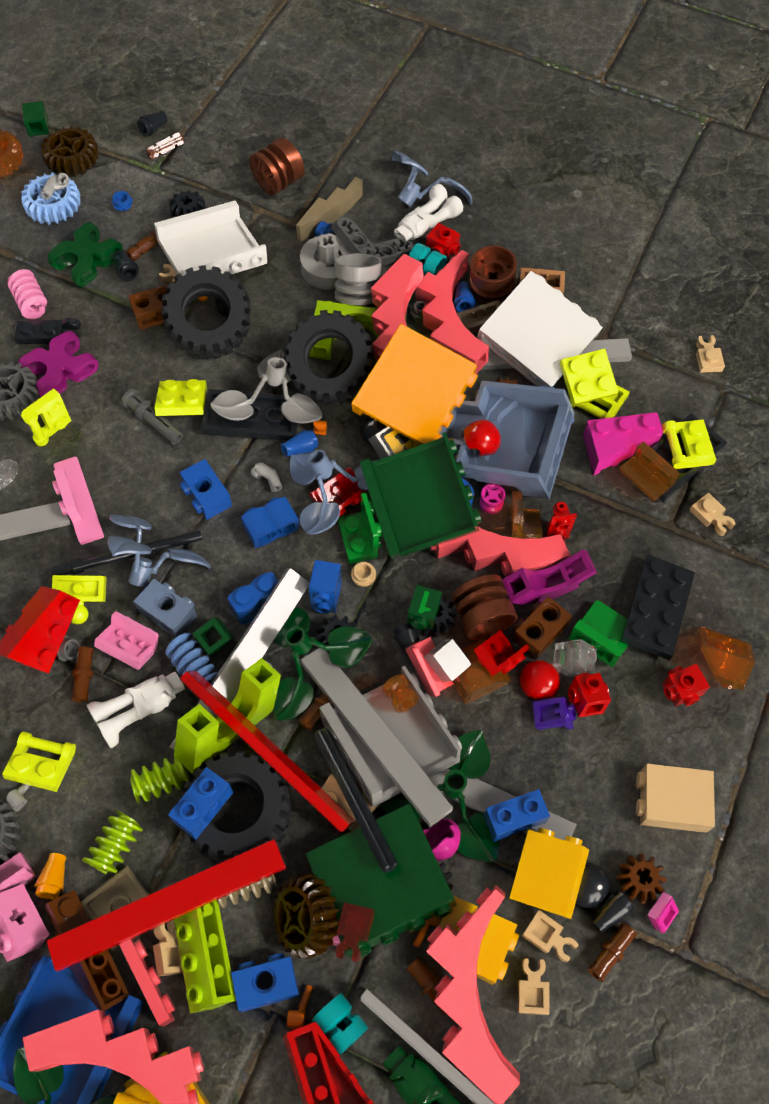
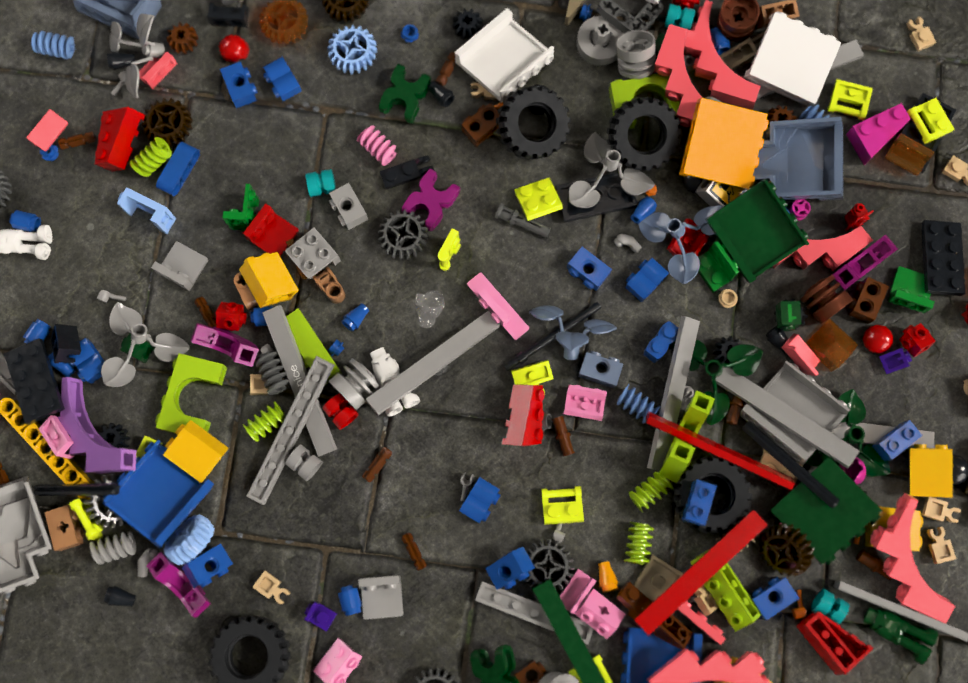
camera: 15 degrees left, 15 degrees up
(53, 184) = (355, 39): light grey arm -> none
(147, 698) = (617, 438): white piece -> none
(213, 636) = (645, 380): dark green brick -> none
(325, 586) = (711, 319): blue brick -> none
(354, 926) = (824, 546): clear red plate -> none
(401, 695) = (793, 385): clear orange wheel -> none
(447, 660) = (816, 348): panel -> none
(482, 436) = (783, 167): red hair -> none
(499, 654) = (849, 332): red bracket -> none
(524, 522) = (829, 220): clear orange panel -> none
(574, 657) = (899, 316): clear brick -> none
(588, 377) = (841, 87): neon yellow plate -> none

